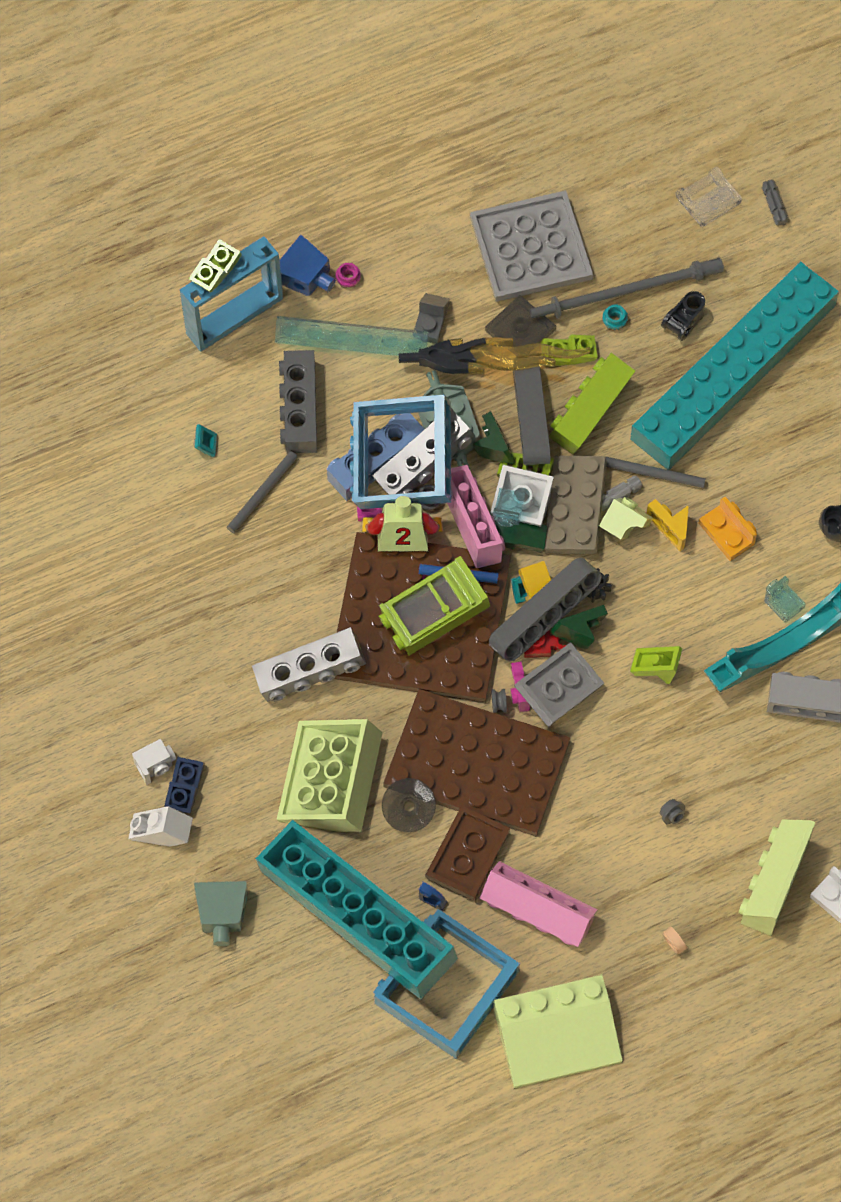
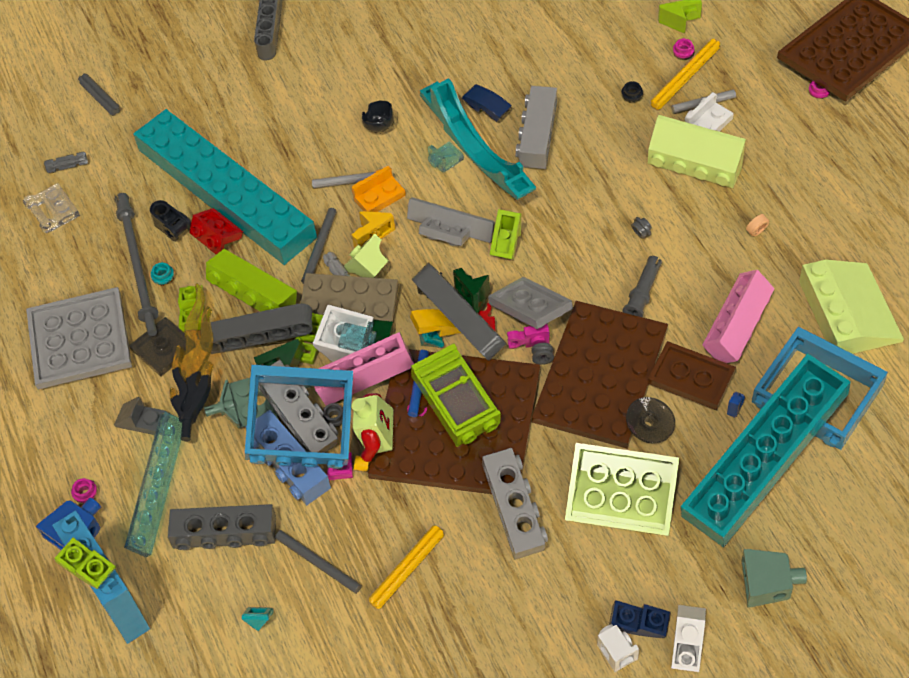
camera: 85 degrees left, 10 degrees down
(252, 572) = (406, 567): none -> yellow axle
(576, 805) = (640, 295): none -> dark grey pin
(672, 362) = (214, 230): none -> red bracket
(675, 600) = (449, 224): none -> light grey bracket
(749, 493) = (340, 180): none -> light grey bar

